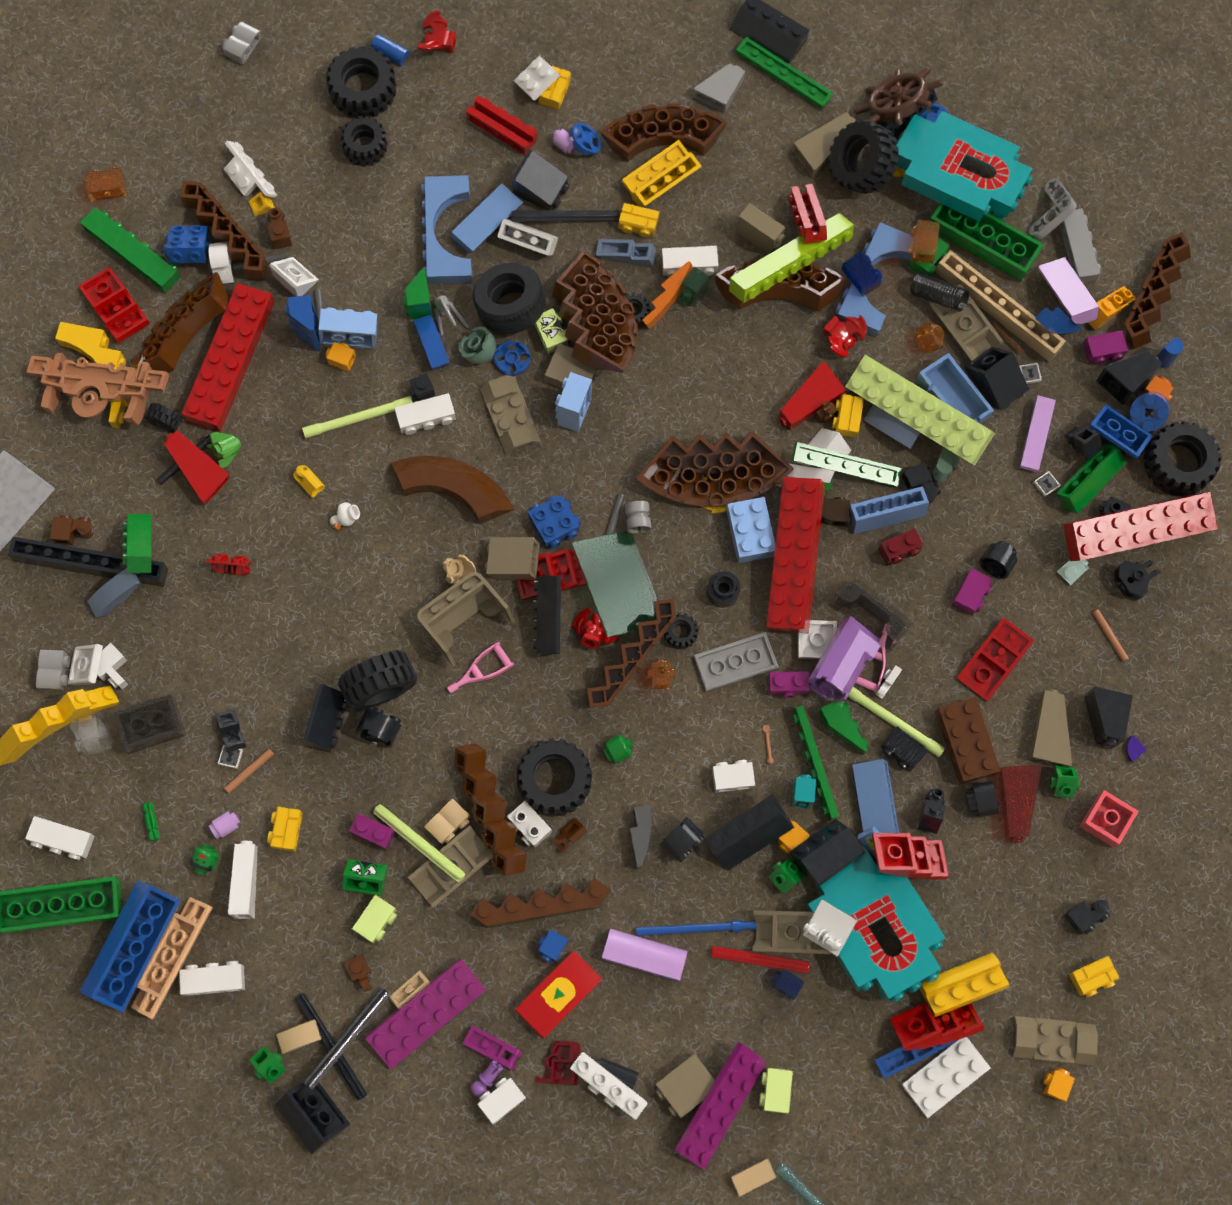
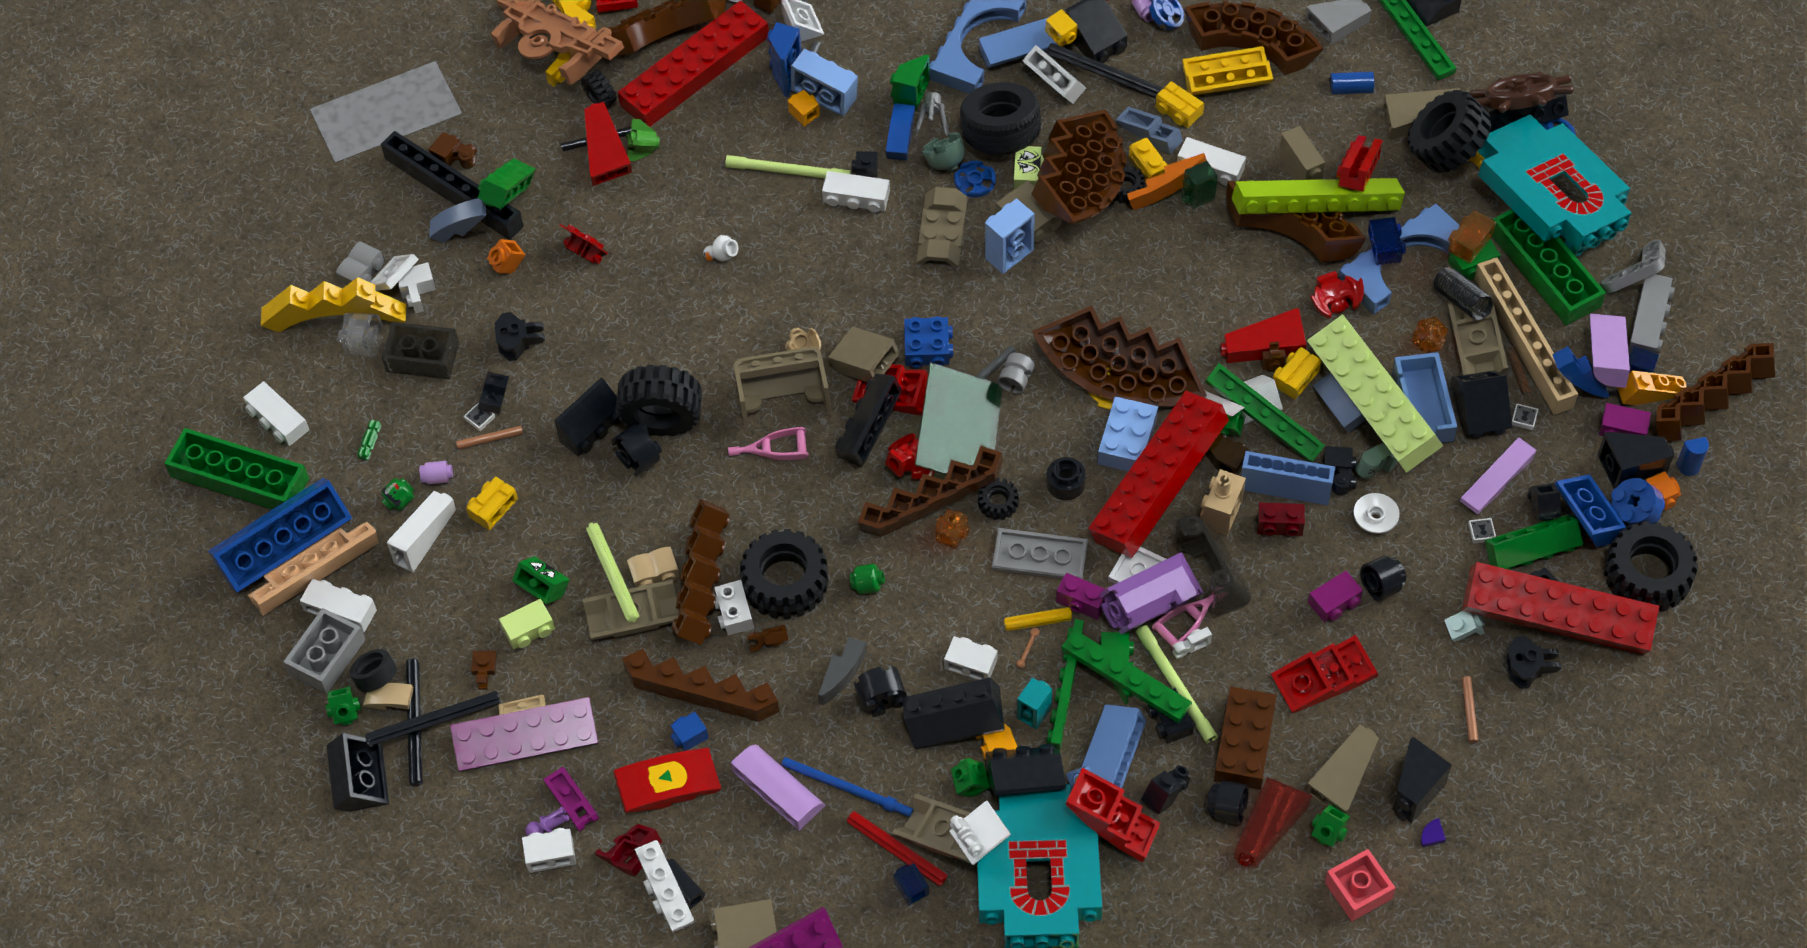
camera: 35 degrees right, 15 degrees down
(172, 605) = (505, 256): none -> orange brick
(223, 674) = (516, 335): none -> black hinge
(225, 1025) = (324, 650): none -> light grey brick
(264, 1016) = (375, 659): none -> black tyre
(309, 480) = (705, 204): yellow piece -> none
(372, 832) = (573, 543): magenta brick -> none
(456, 480) = (850, 263): reddish brown brick -> none
(515, 195) = (1061, 28): none -> yellow brick
(642, 282) = (1146, 159): none -> yellow brick
(759, 140) = (1352, 82): none -> blue brick
(763, 717) = (1038, 619): none -> yellow axle
(853, 554) = (1223, 501): none -> tan brick
(859, 736) = (1126, 676): none -> green plate
(968, 499) = (1376, 504): none -> white dish
(1096, 288) = (1642, 360): none -> clear blue brick

